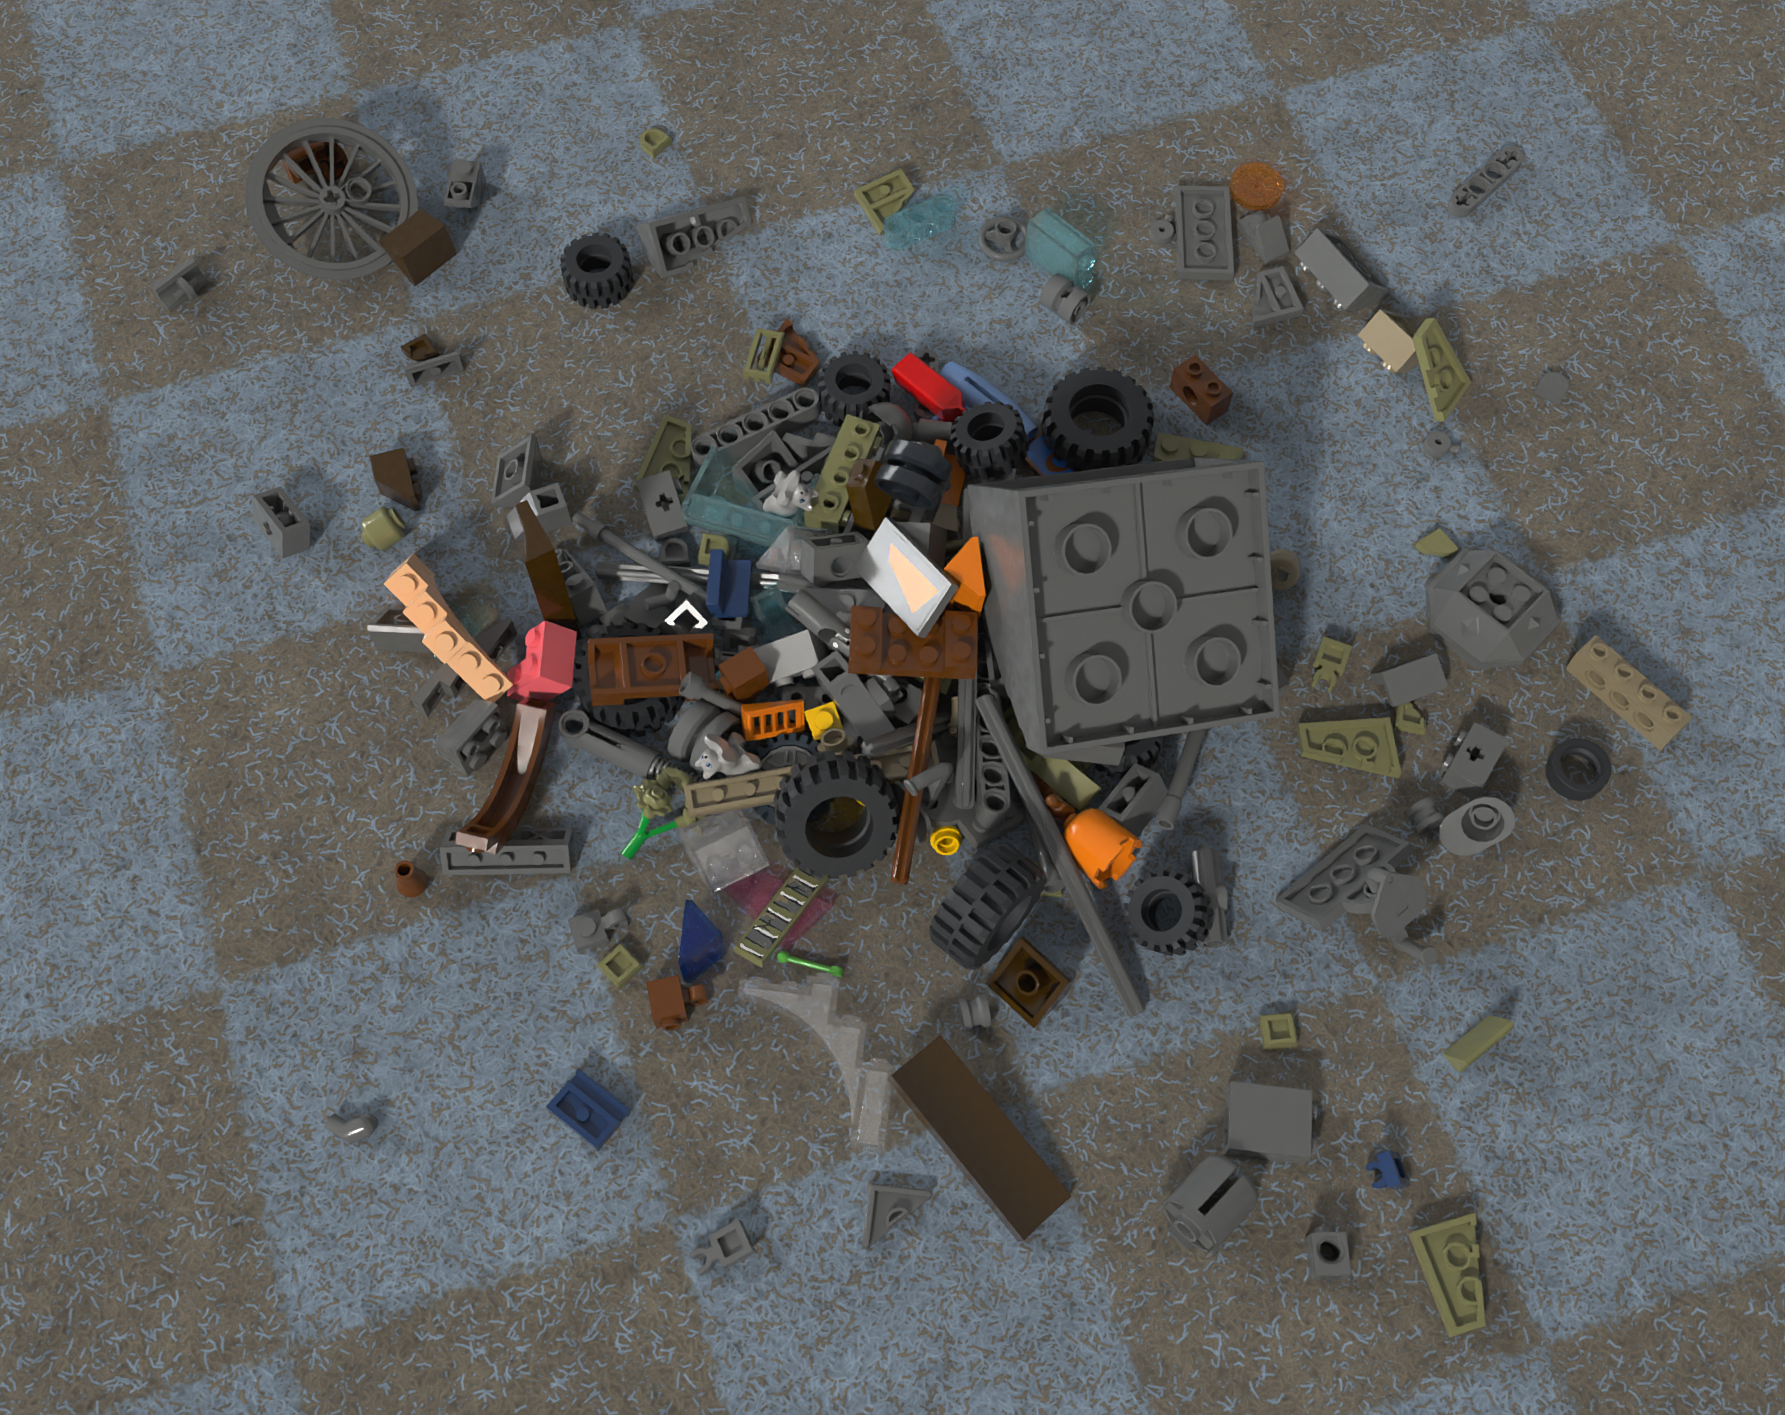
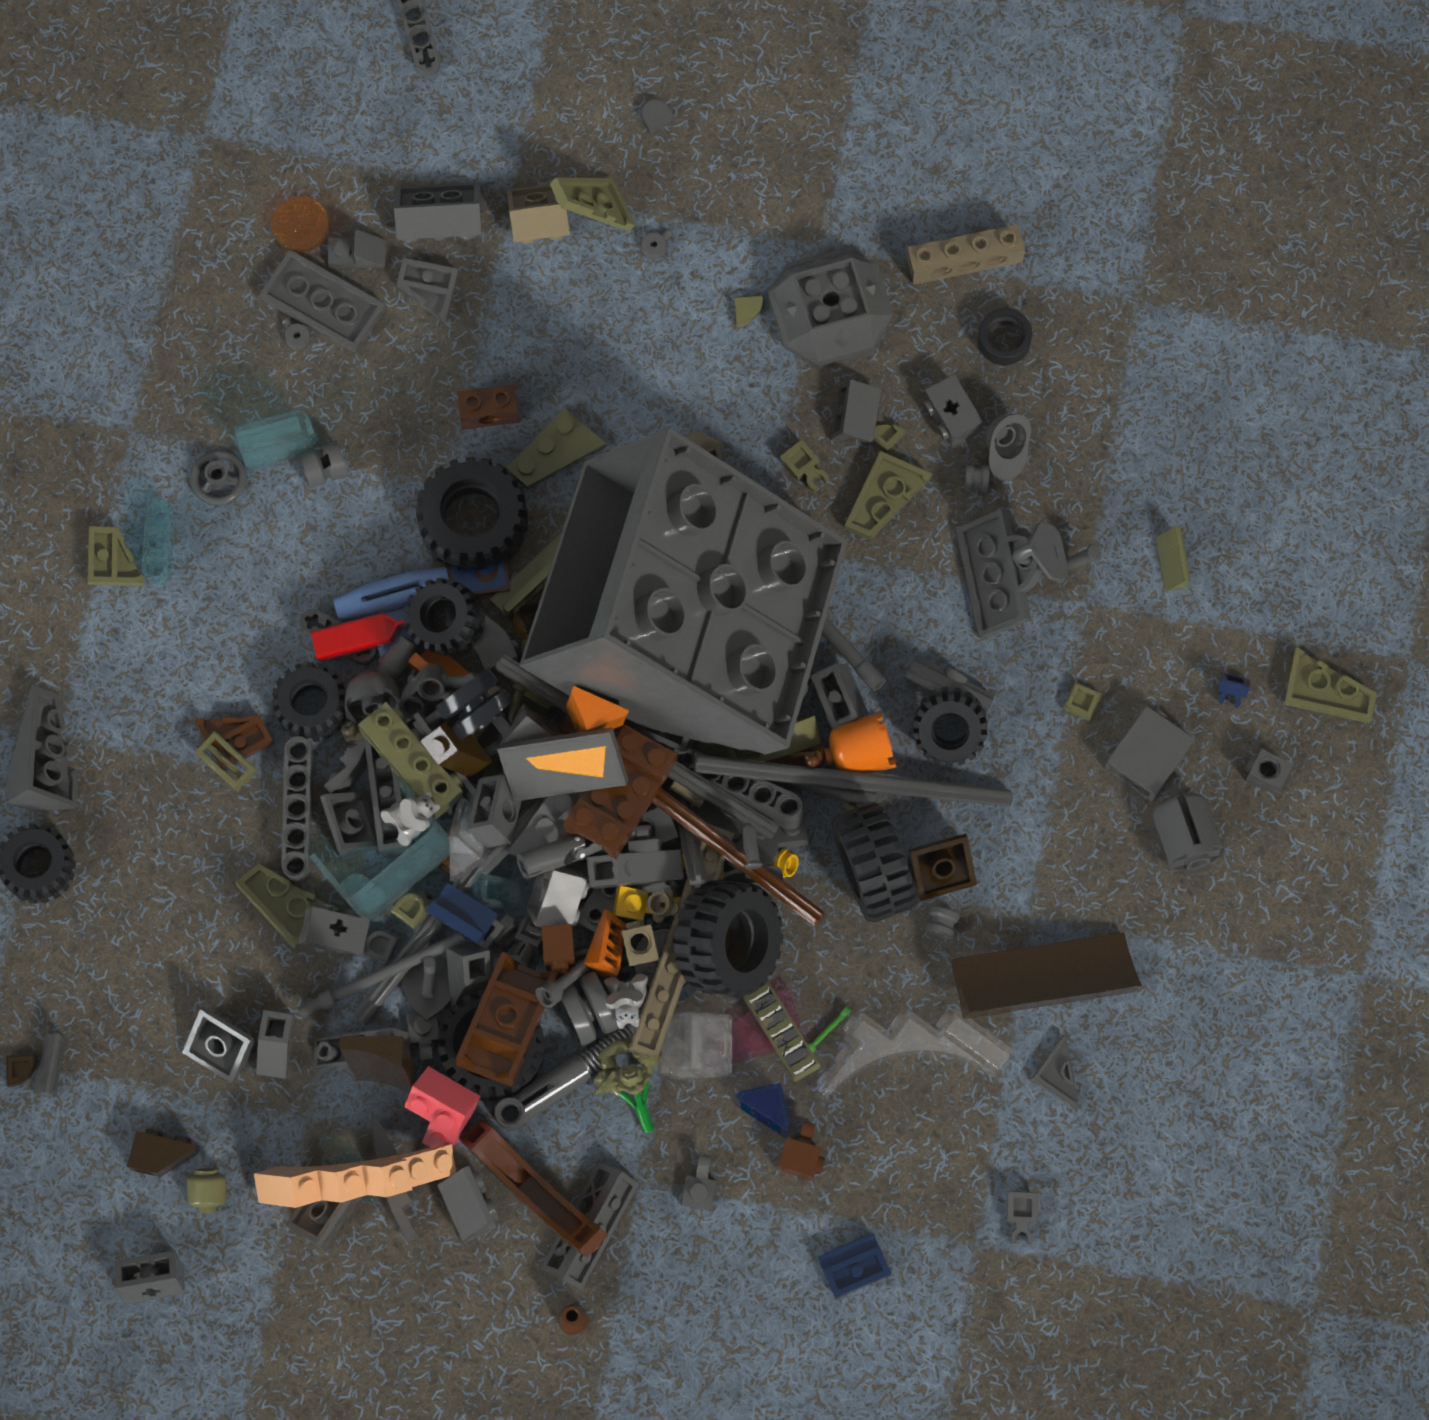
camera: 60 degrees left, 10 degrees up
(619, 966) = (744, 1183): olive tile -> none
(786, 755) = (638, 957): none -> dark tan brick

